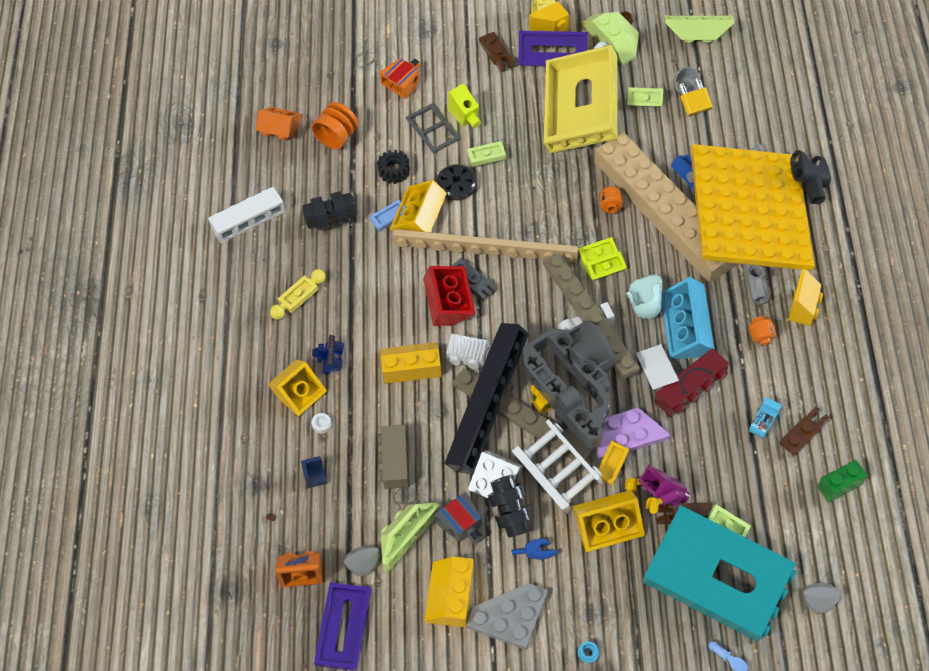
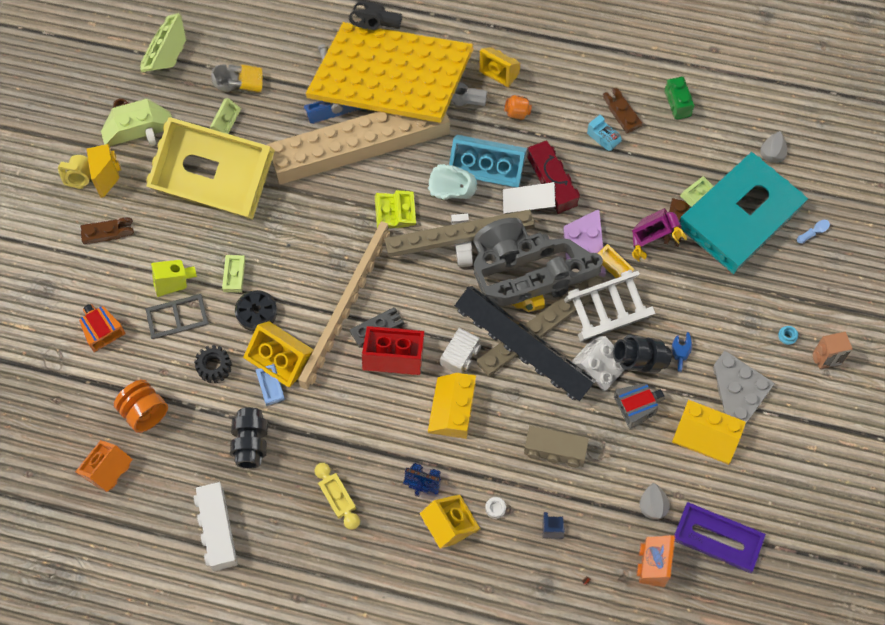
camera: 75 degrees left, 5 degrees up
(405, 530) = (639, 458): yellowish green wedge -> none
(548, 38) = (111, 193): dark purple piece -> none
(608, 520) = (669, 281): yellow slope -> none
(611, 199) = (334, 180): orange head -> none

